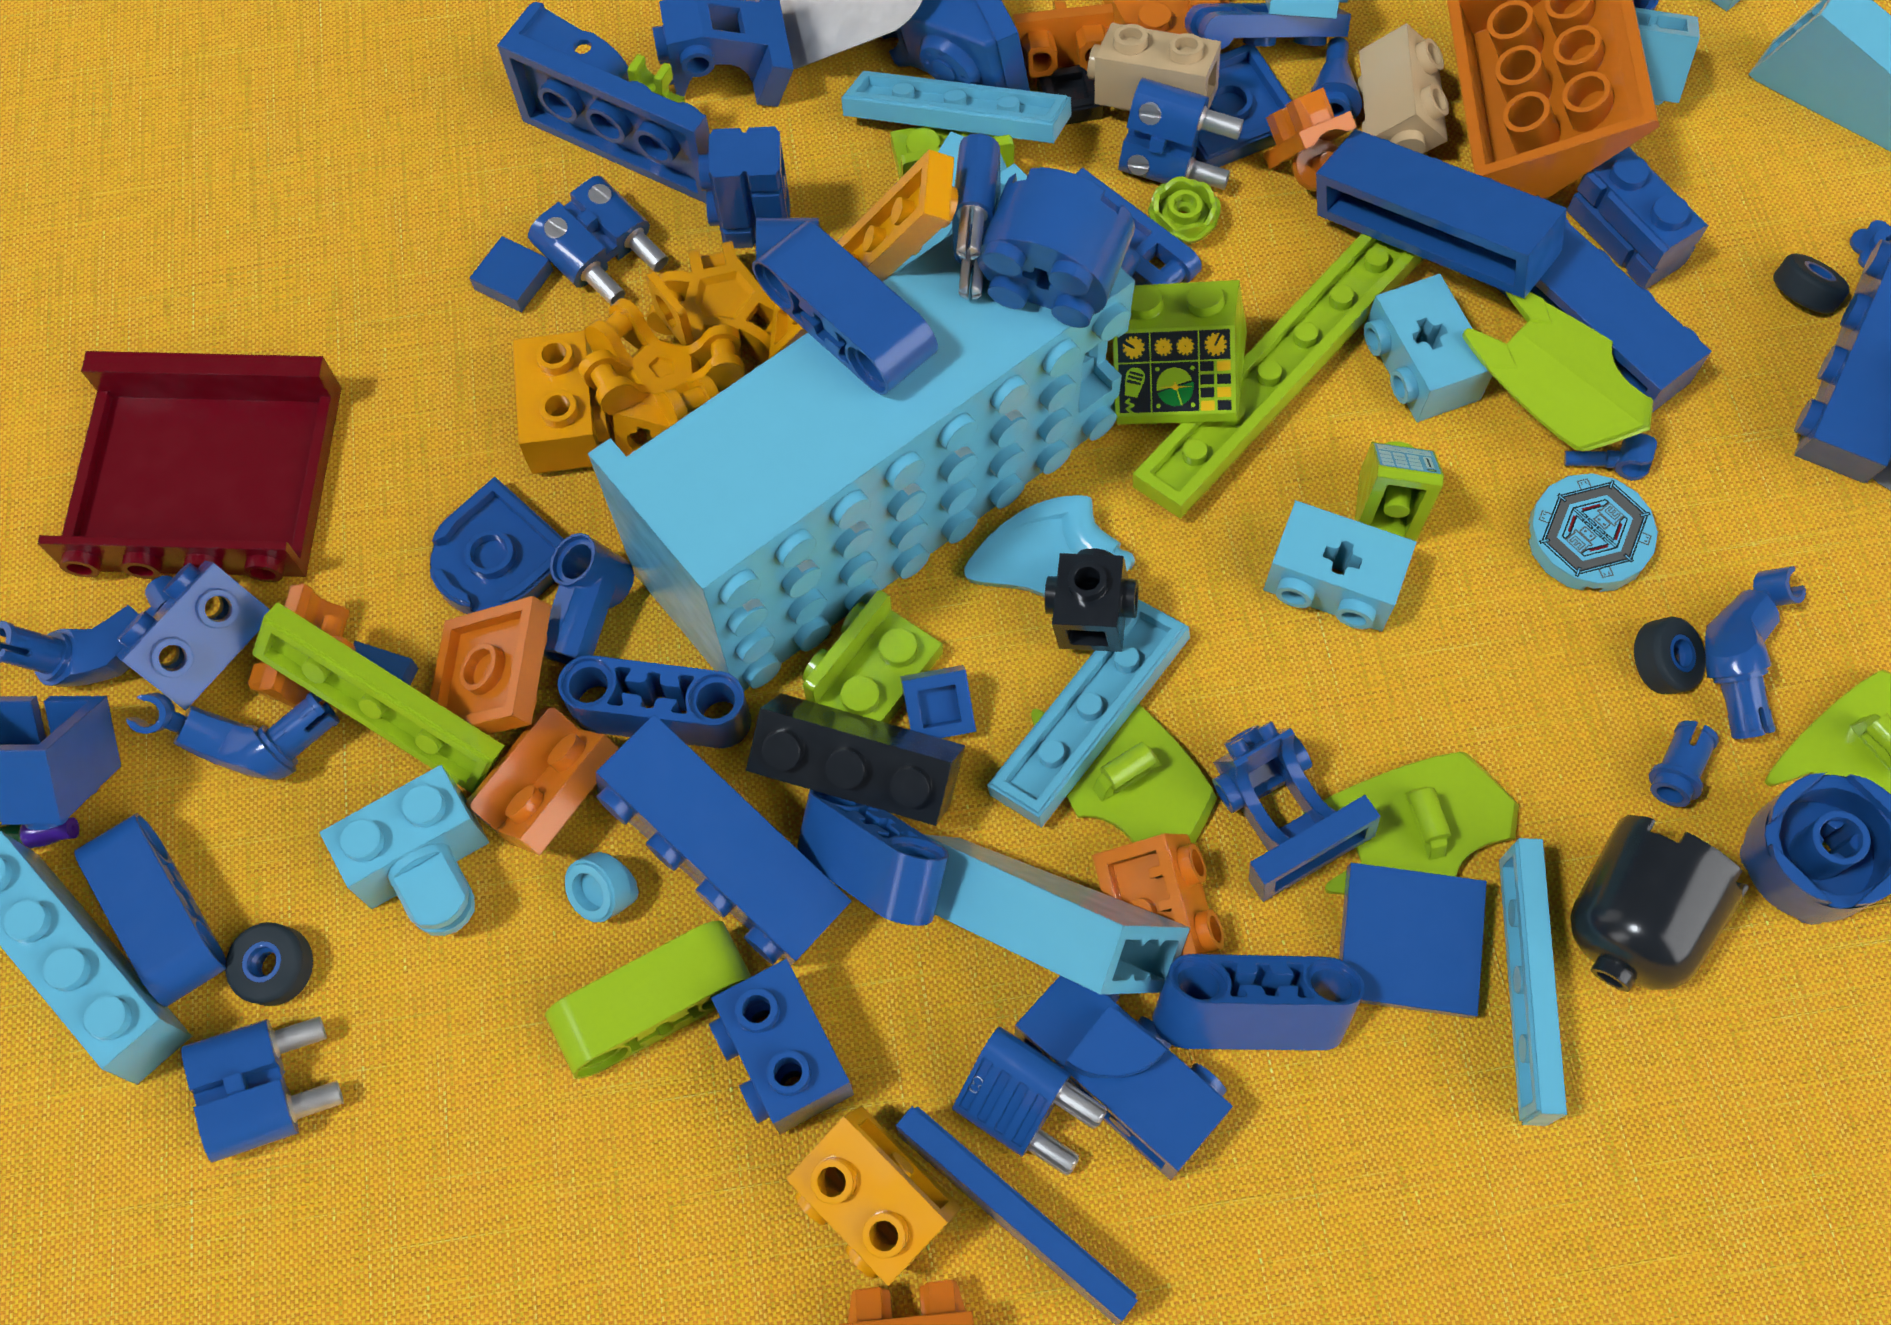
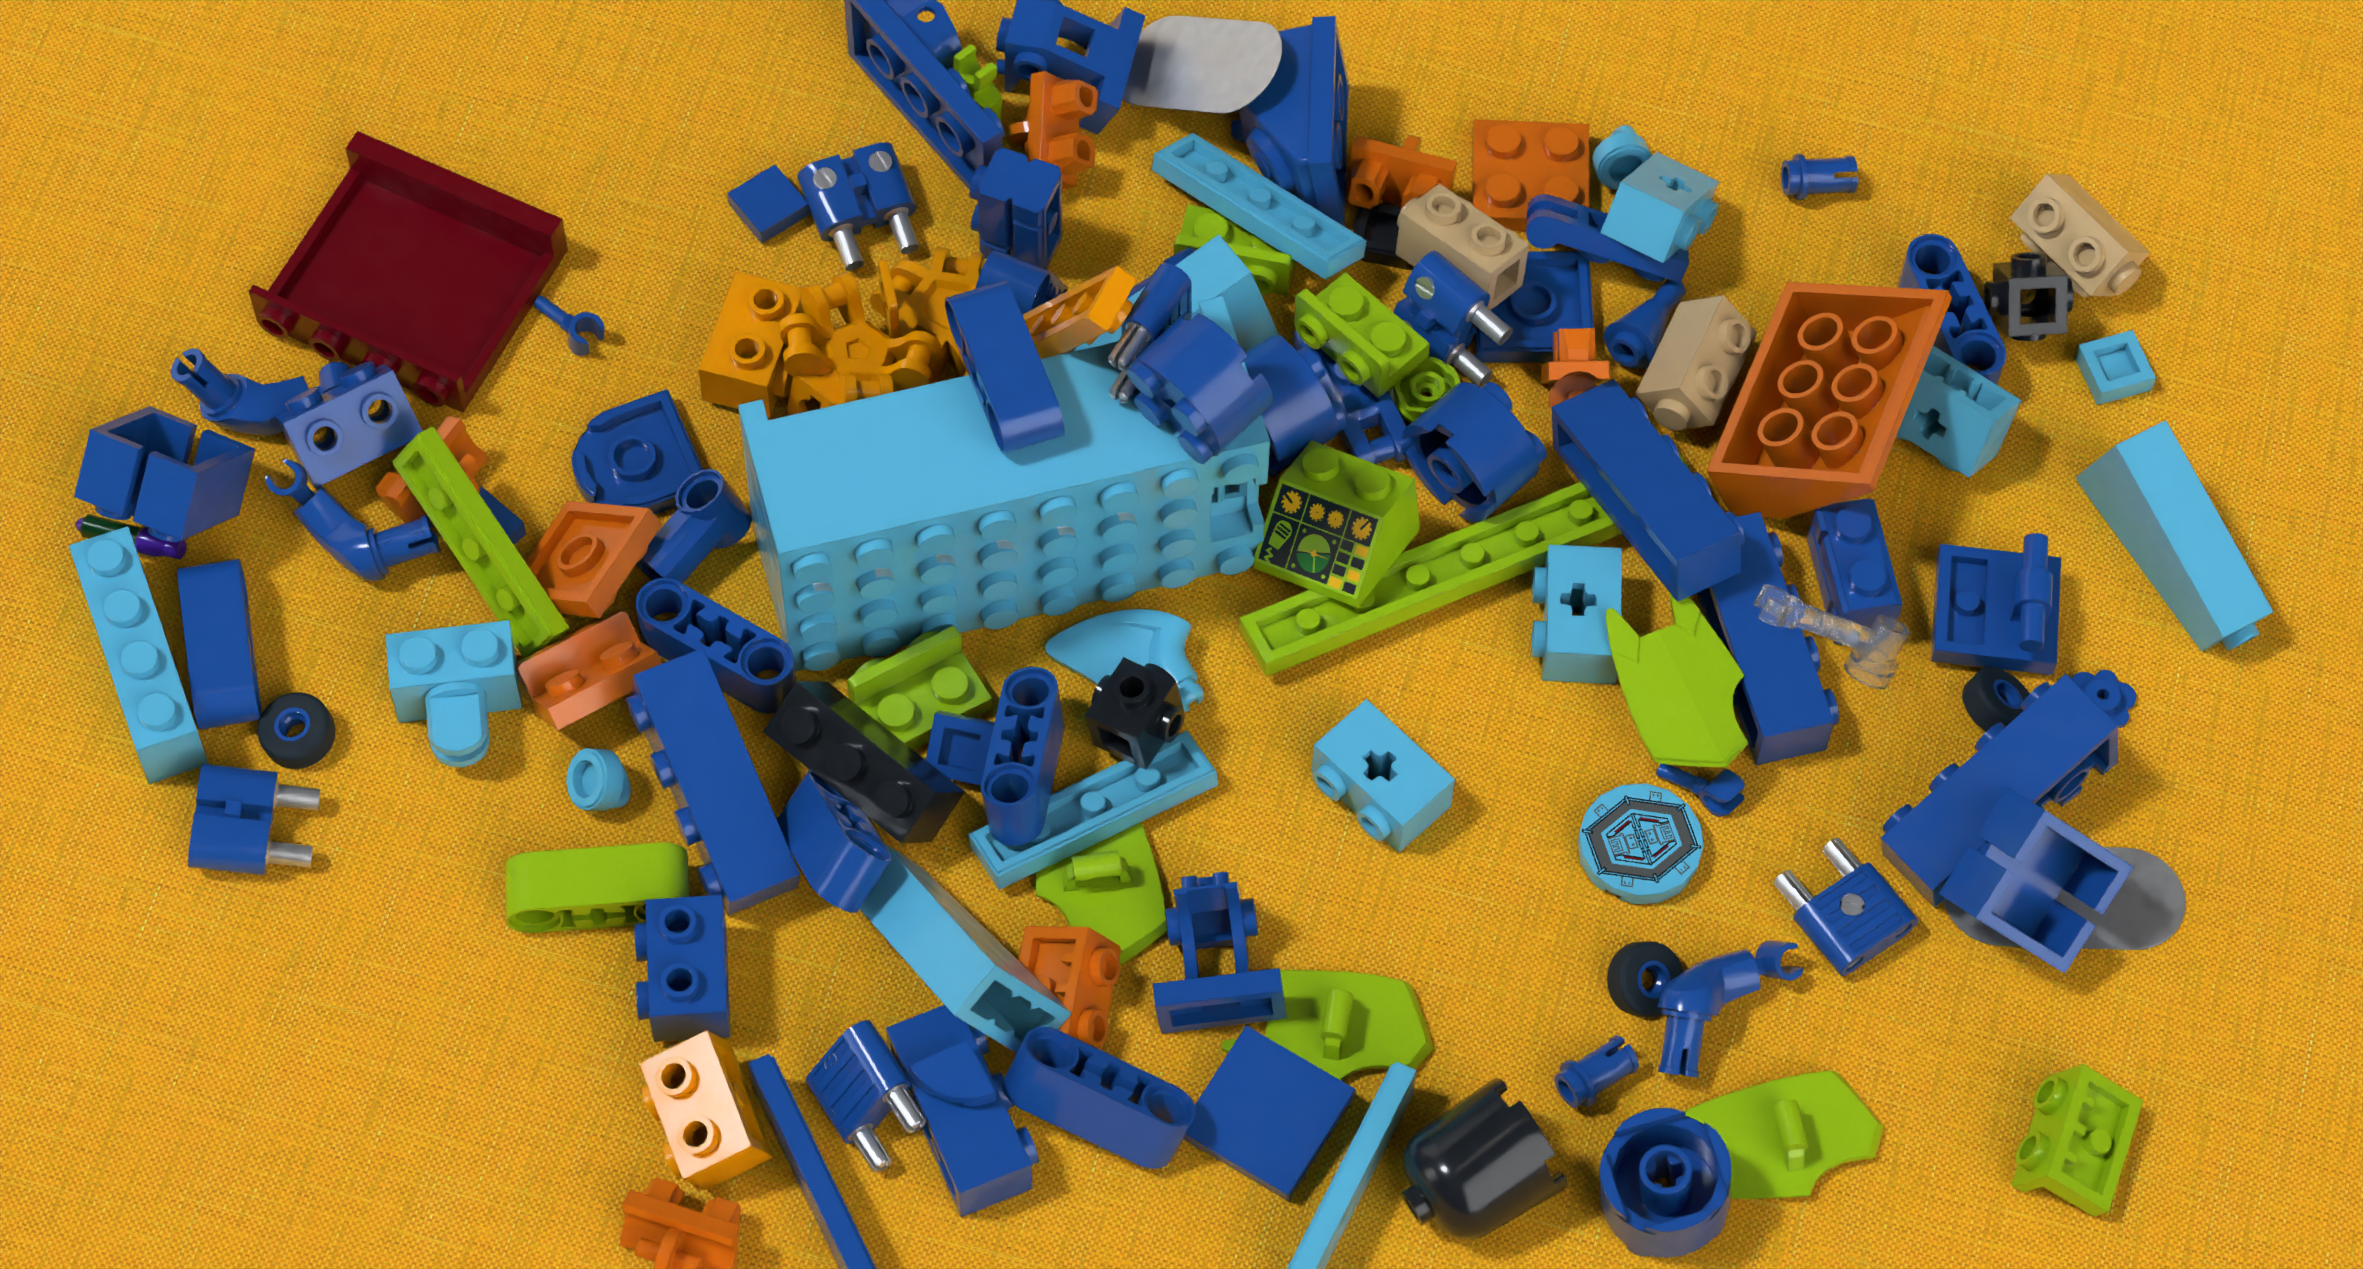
camera: 20 degrees right, 5 degrees down
(376, 452) = (572, 324): none -> blue hand
(736, 95) = (1053, 125): none -> orange hips
(1016, 716) = (1023, 756): none -> blue beam
(1125, 174) = (1359, 334): none -> lime bracket
(1264, 236) = (1473, 449): none -> blue brick
(1398, 488) = (1469, 728): lime slope -> none
(1691, 278) = (1873, 650): none -> clear brick
(1768, 200) = (1997, 607): none -> blue plate
(1813, 520) = (1851, 917): none -> blue piece

